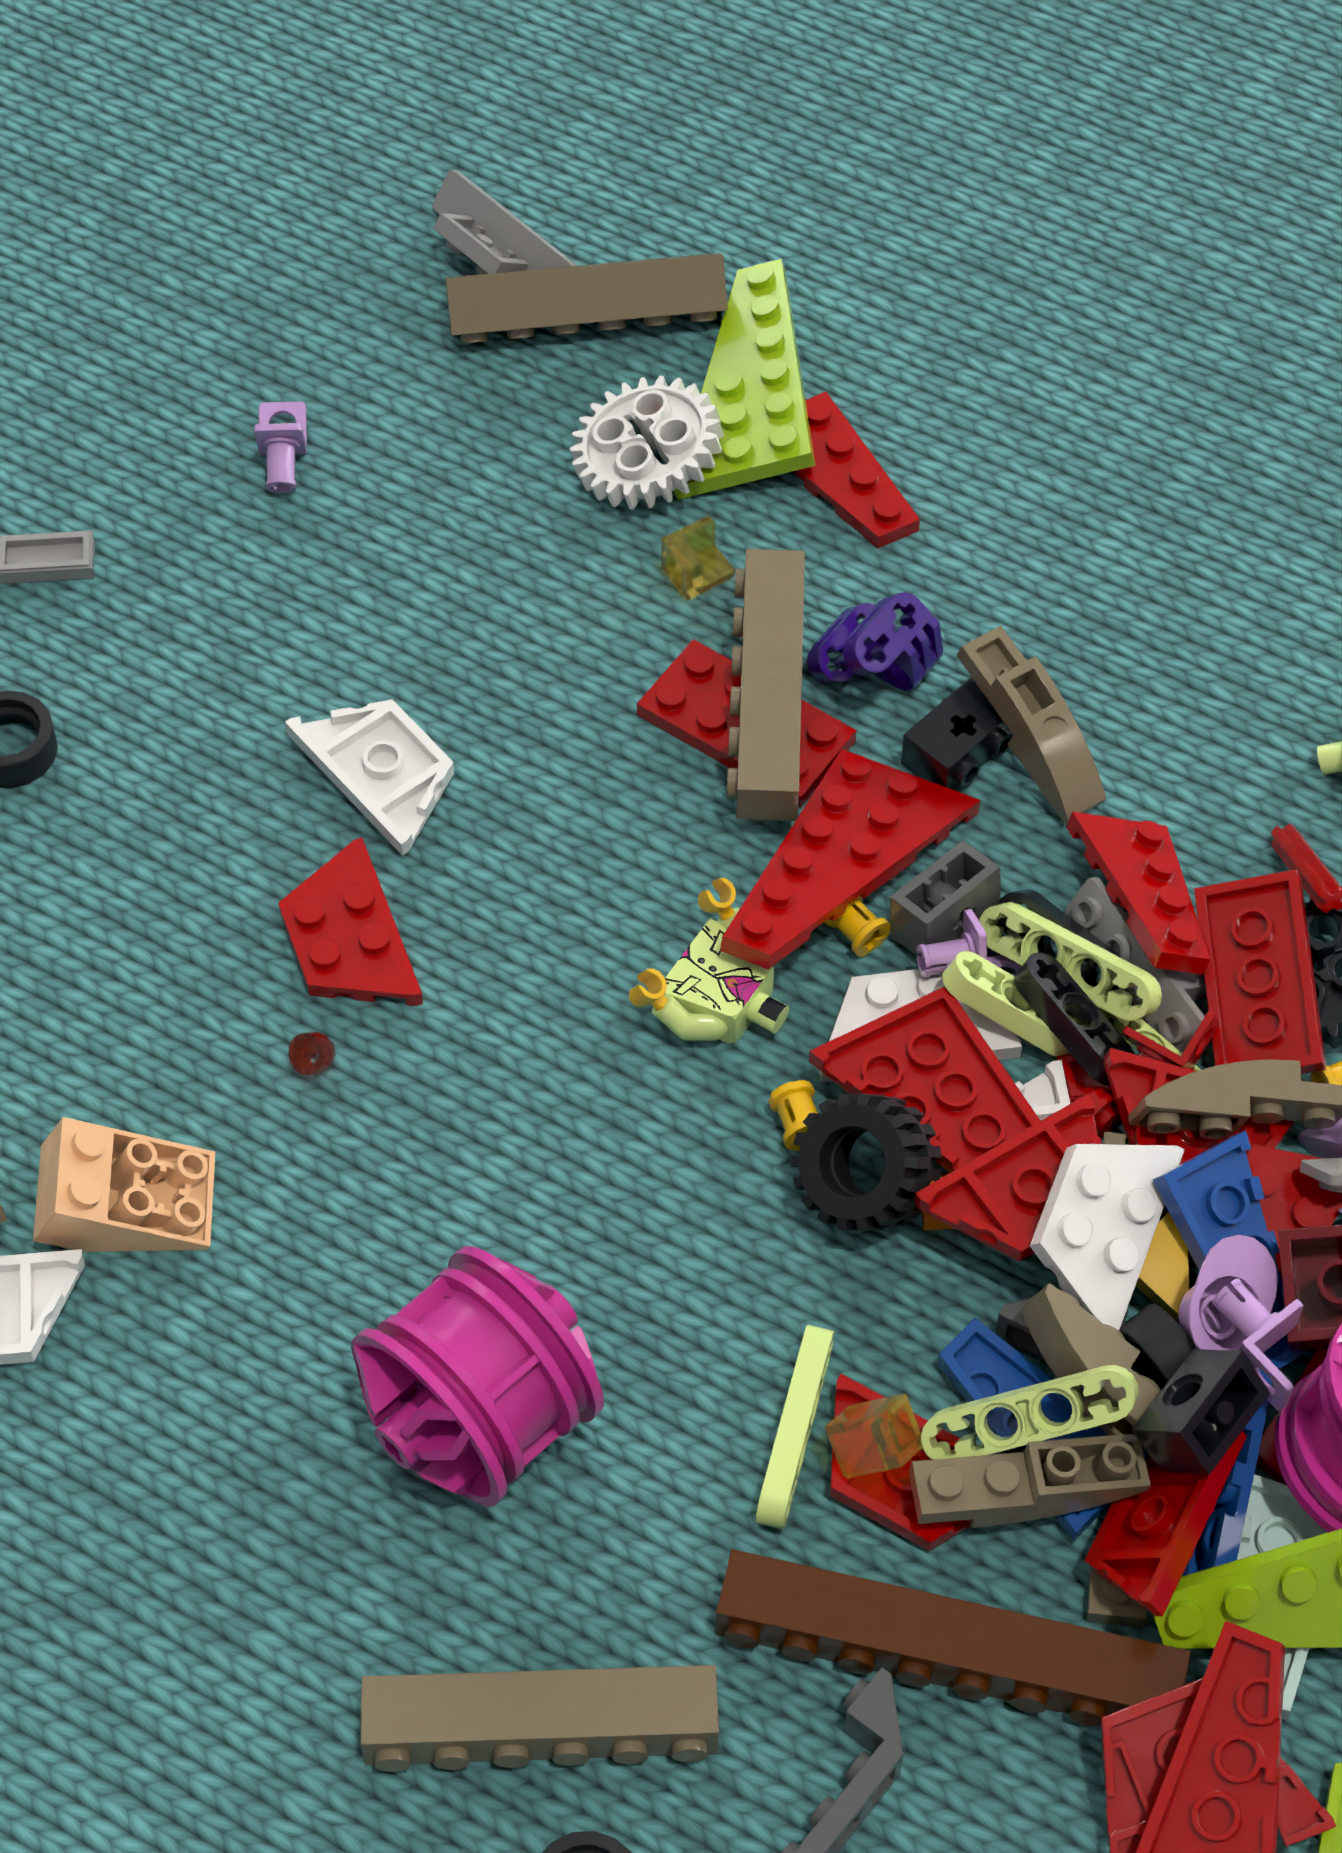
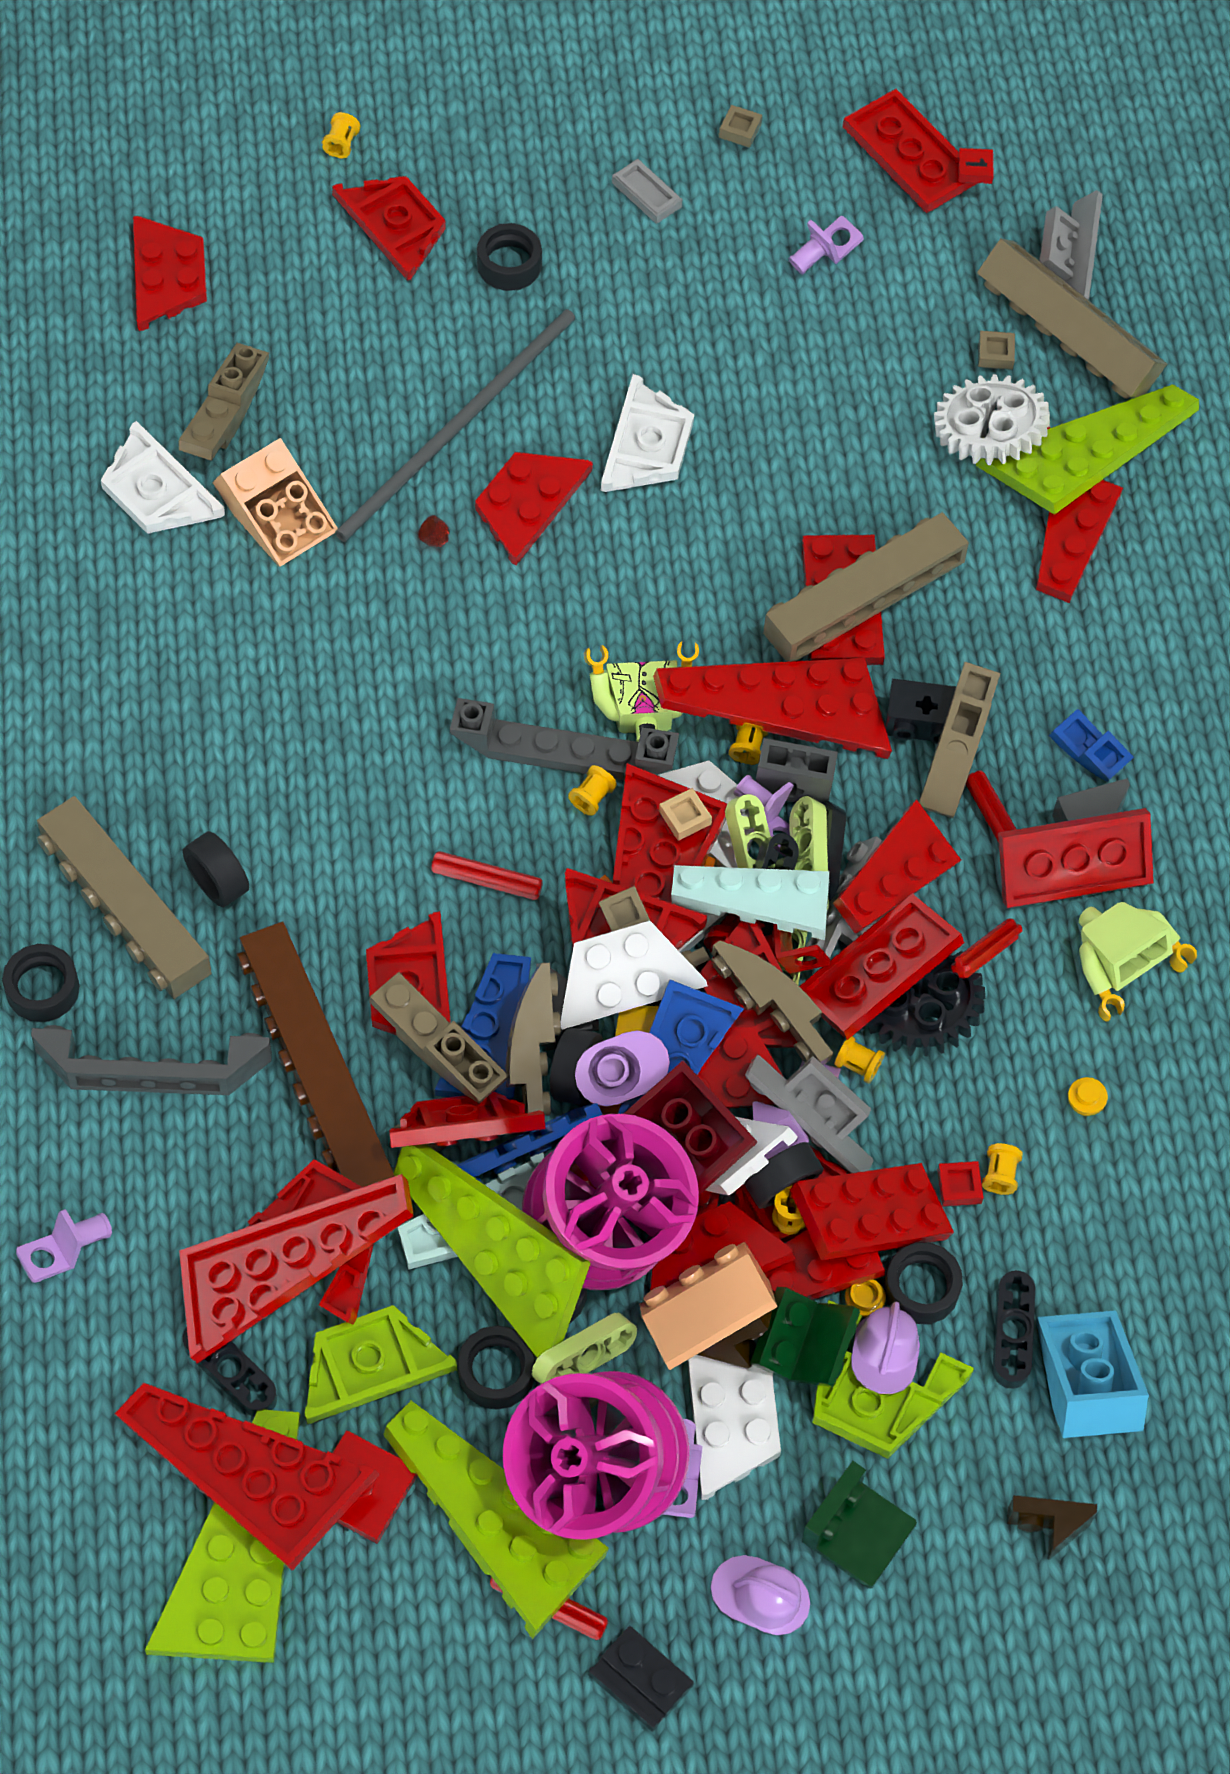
camera: 50 degrees right, 5 degrees up
(50, 416) = (740, 126): none -> dark tan plate
(183, 947) = (461, 419): none -> dark grey piece
(234, 292) = (908, 149): none -> red plate
(318, 247) = (975, 166): none -> red tile
(477, 1376) = (275, 727): dark pink wheel -> none
(558, 384) = (996, 350): none -> dark tan plate
(597, 1579) = (216, 869): none -> black tyre
(694, 560) = (932, 496): clear yellow panel -> none
(725, 1104) = (556, 748): none -> dark grey slope
(795, 1427) = (391, 911): yellowish green beam -> none
(820, 1297) = (487, 875): none -> red axle
(826, 1154) = (576, 832): black tyre -> none
(875, 1436) = (407, 948): clear yellow panel -> none
(877, 645) = (958, 640): dark purple piece -> none
(934, 1032) = (685, 814): none -> tan plate
(1030, 1165) = (624, 909): none -> dark tan plate
(1031, 1421) = (470, 1014): yellowish green beam -> none
(1099, 1027) = (771, 895): none -> light aqua wing
(1126, 624) = (1089, 747): none -> blue slope
(1151, 763) = (989, 803): none -> red axle
(1201, 1411) = (533, 1090): black brick -> none
(1207, 677) = (1091, 802): none -> dark grey slope
(1256, 718) = (1076, 857): none -> red plate
(1261, 1332) = (607, 1089): lavender bracket -> none

